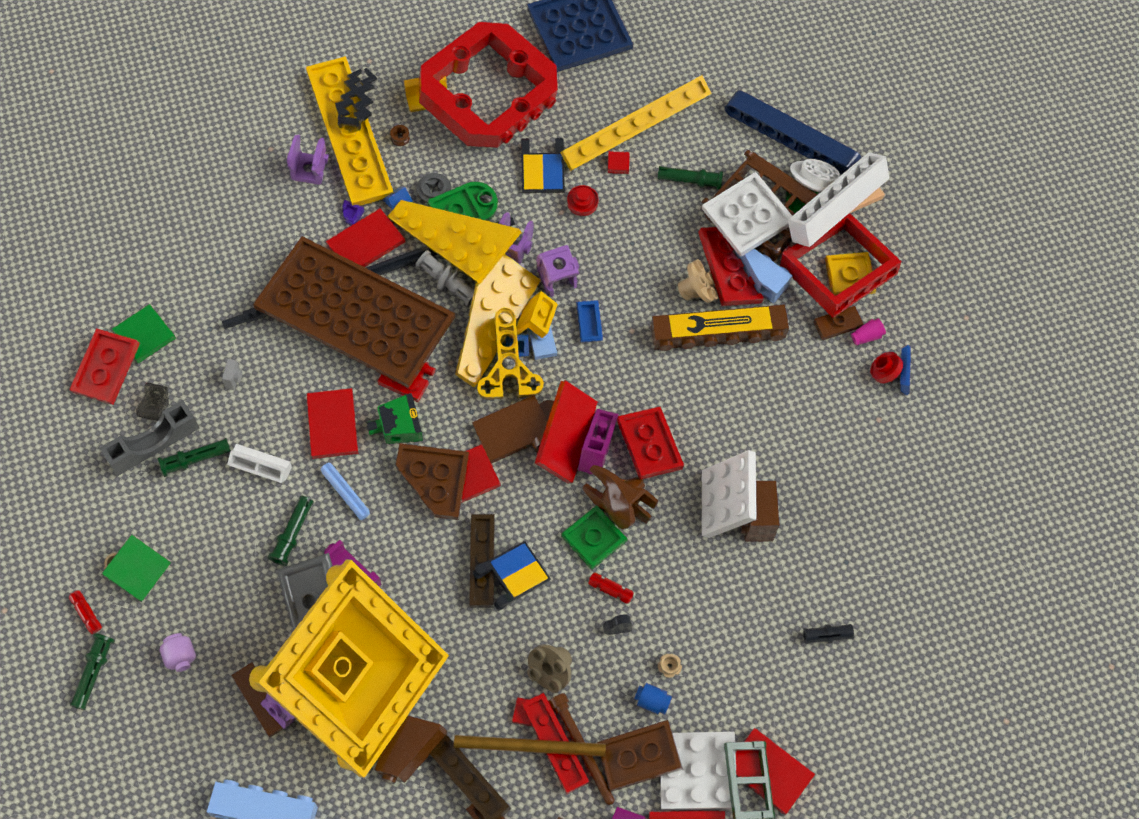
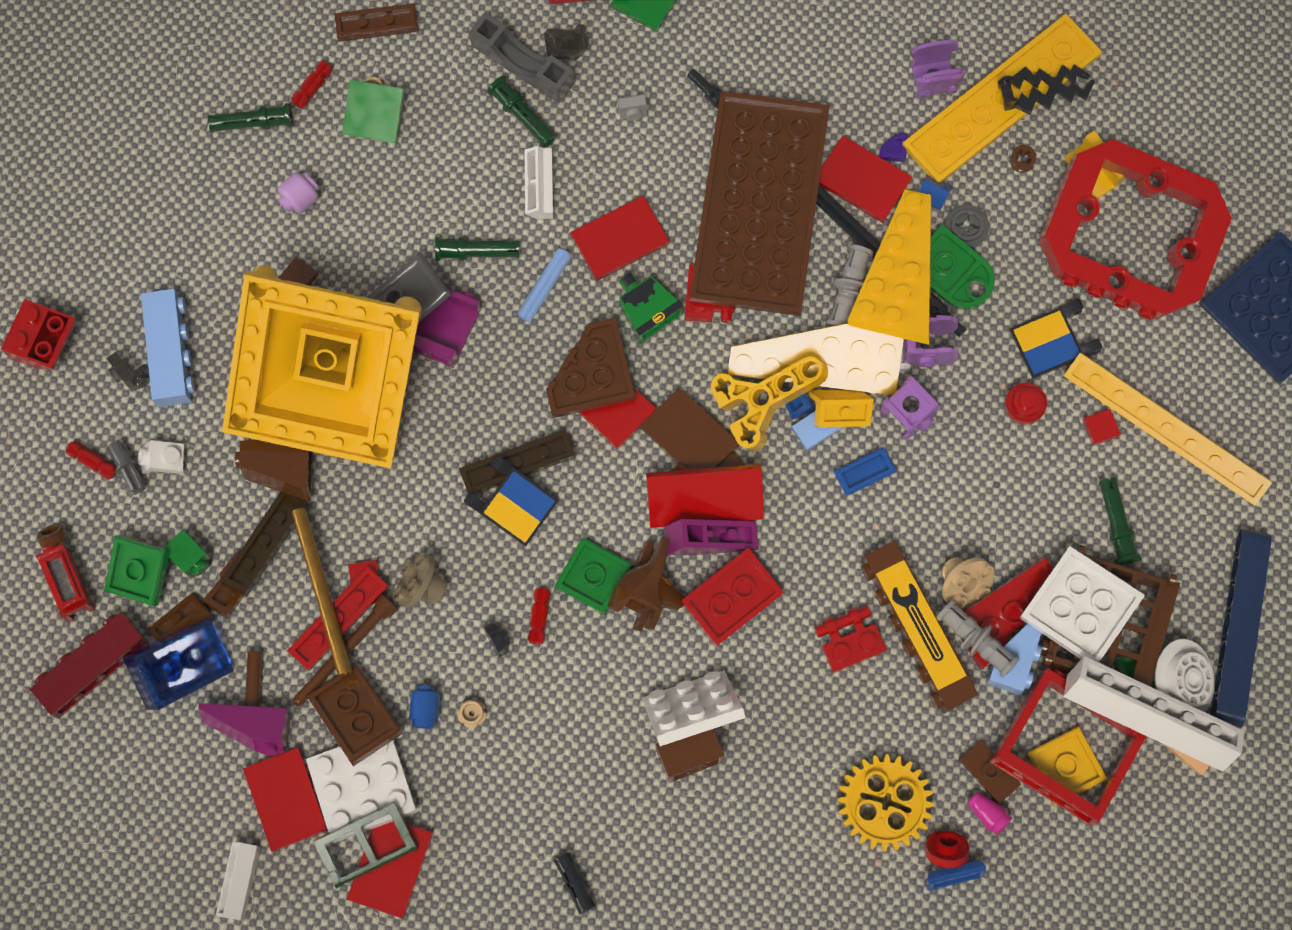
camera: 75 degrees right, 10 degrees up
(57, 543) = (376, 22): none -> reddish brown tile
(717, 377) = (853, 647): none -> red plate
(746, 286) = (978, 638): none -> light grey piece
(856, 407) = (892, 776): none -> yellow gear

